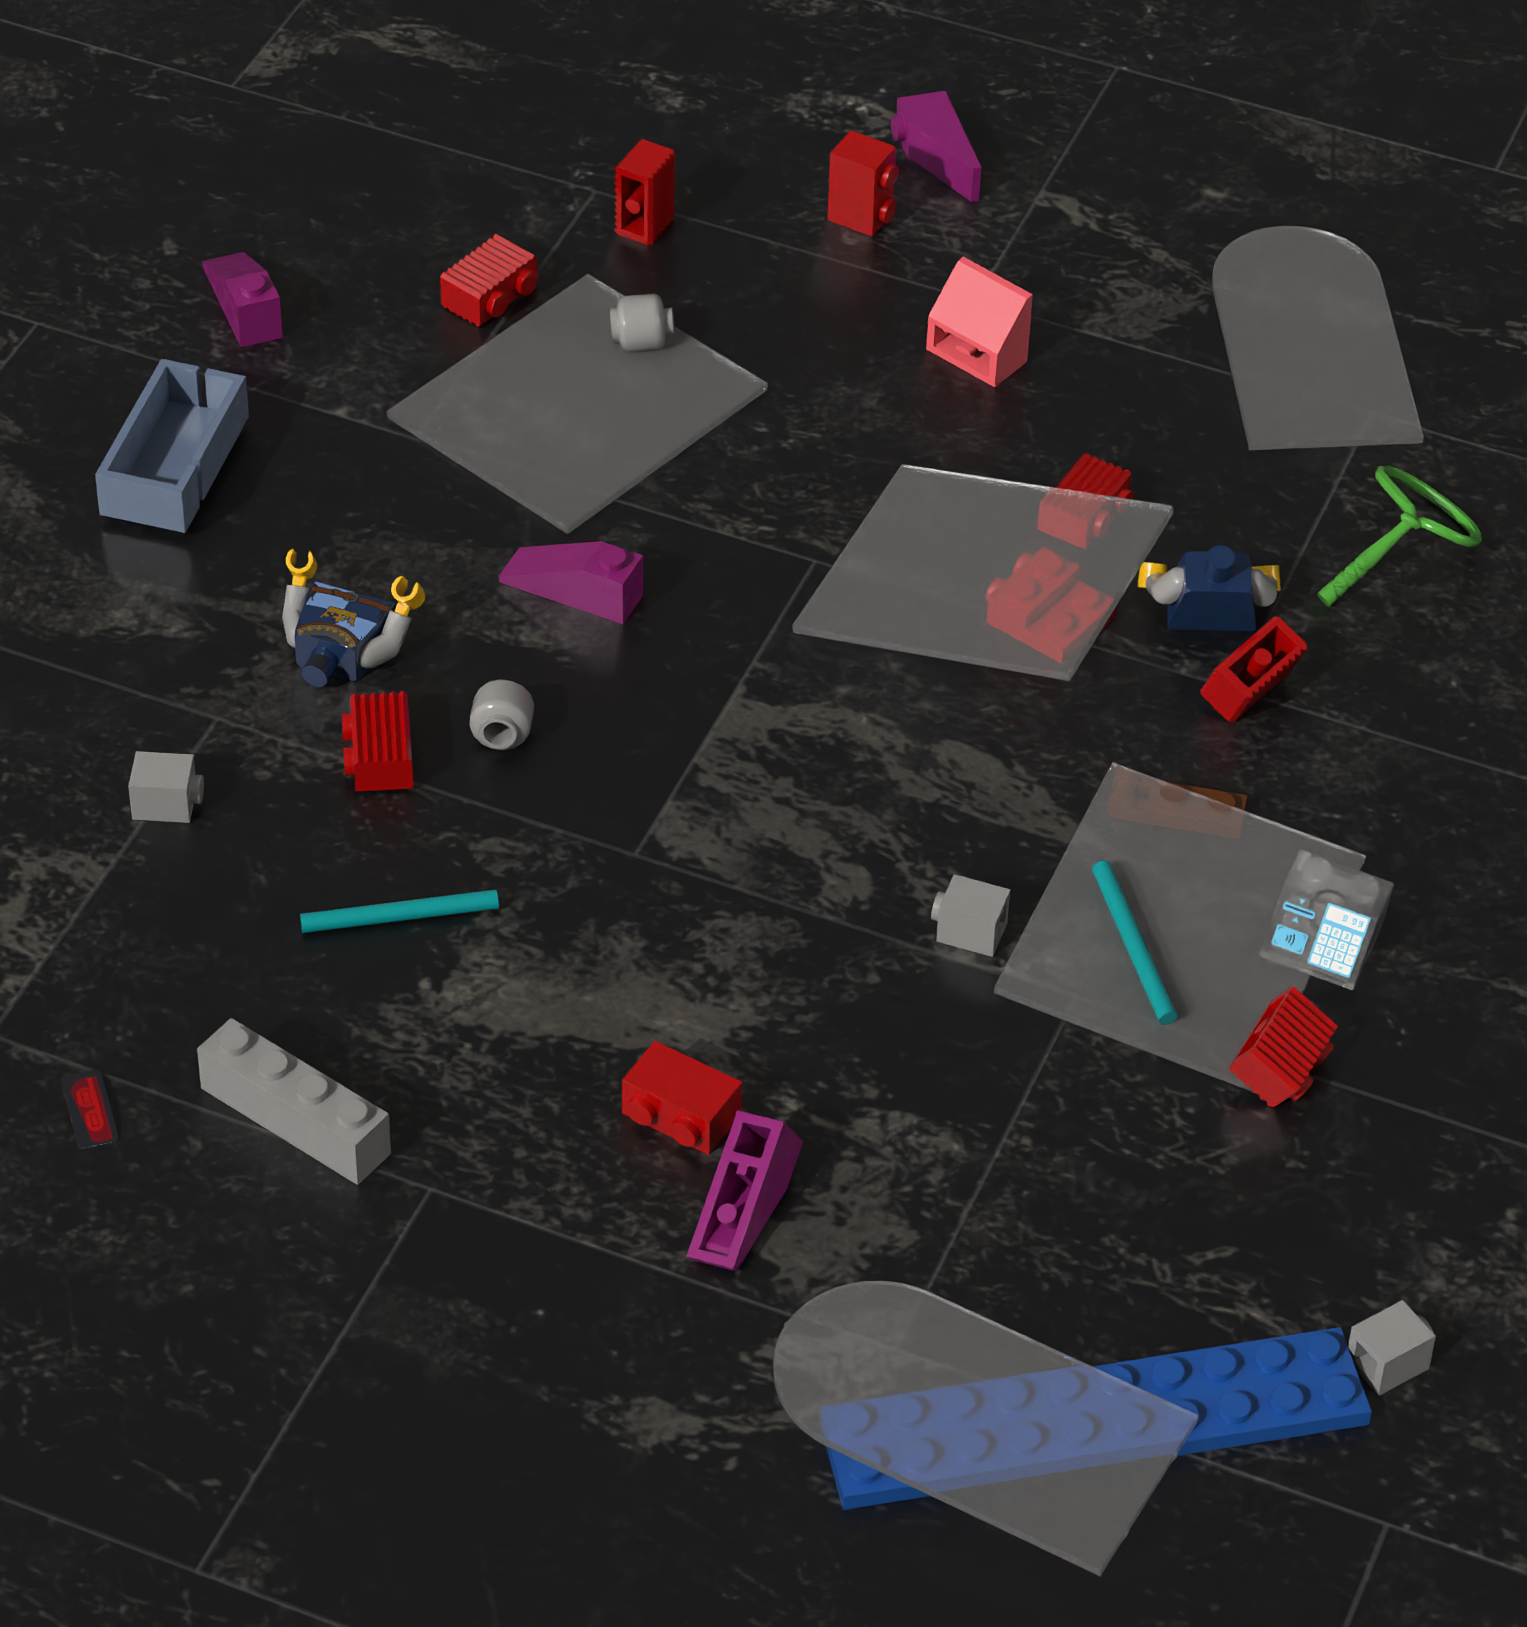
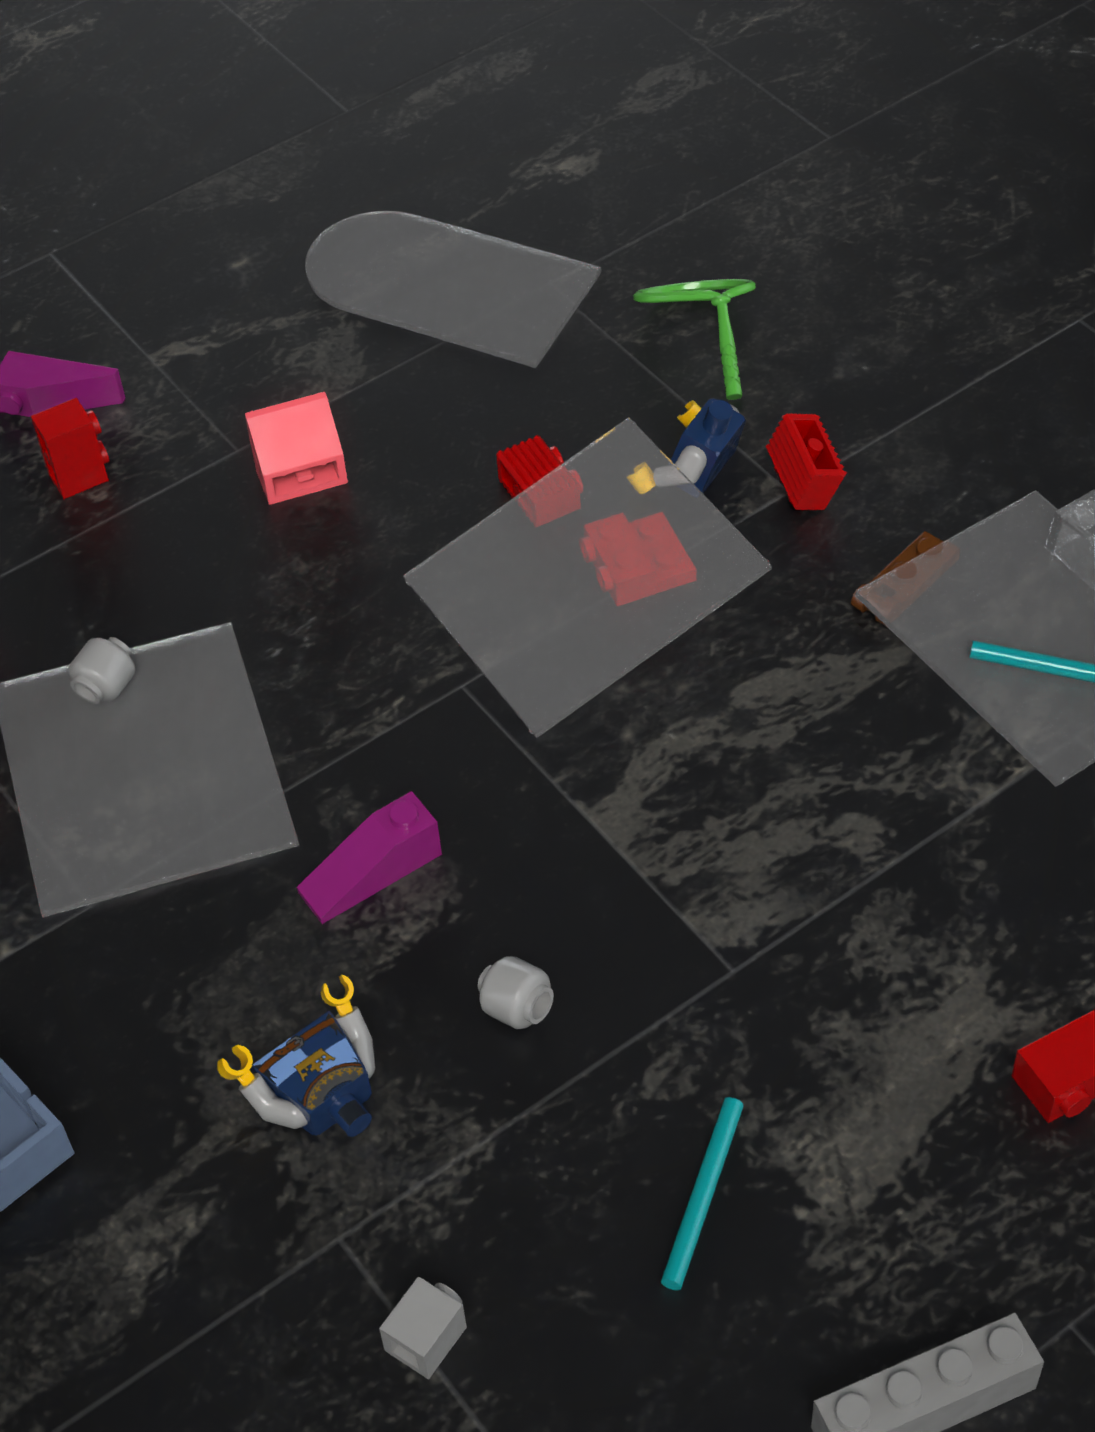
camera: 55 degrees left, 5 degrees up
(380, 742) = (484, 1108): red brick -> none
(971, 915) = (965, 759): light grey brick -> none

